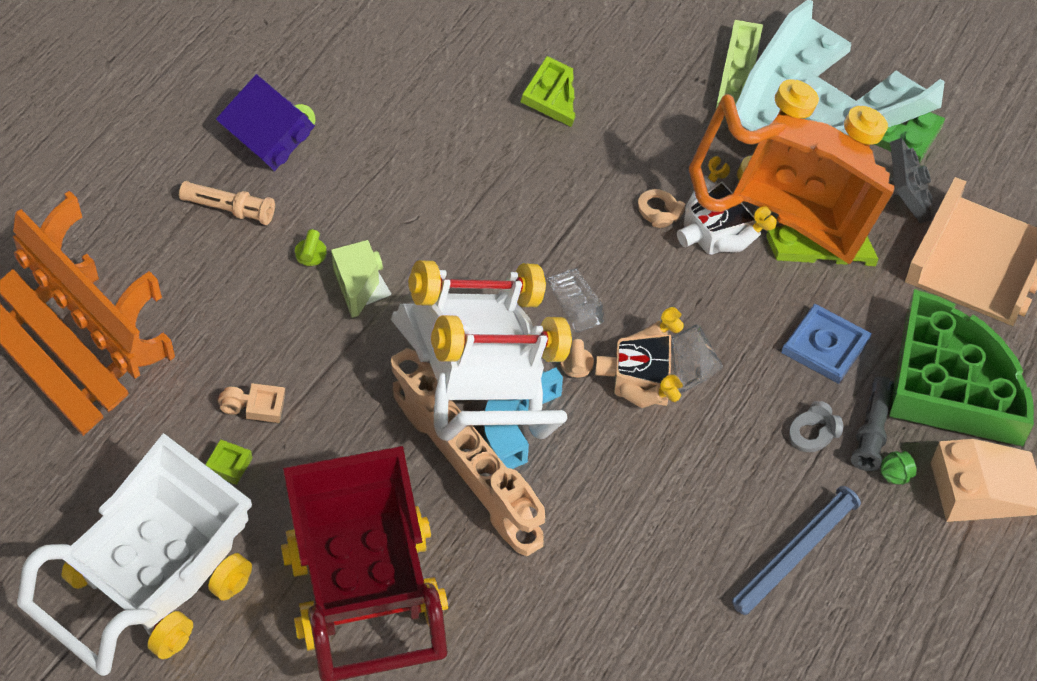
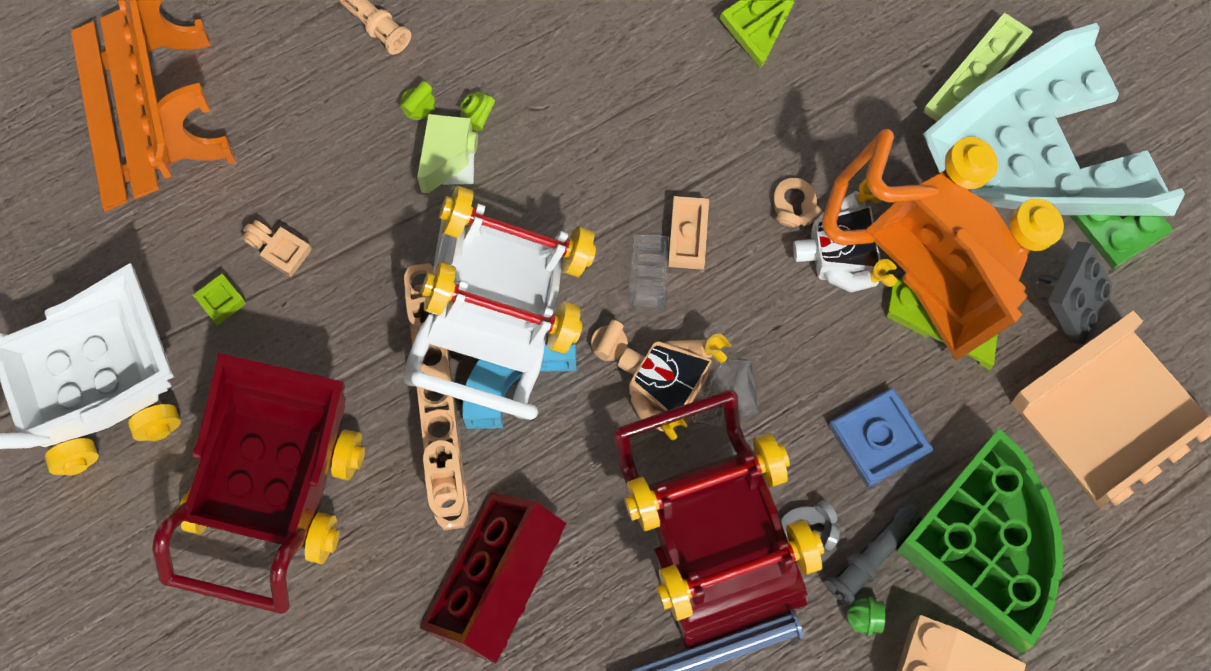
camera: 30 degrees right, 15 degrees up
(361, 232) = (477, 108): none -> lime plate
(591, 258) = (688, 233): none -> light nougat plate
(591, 568) = (494, 576): none -> dark red slope
(758, 443) = (720, 530): none -> dark red piece

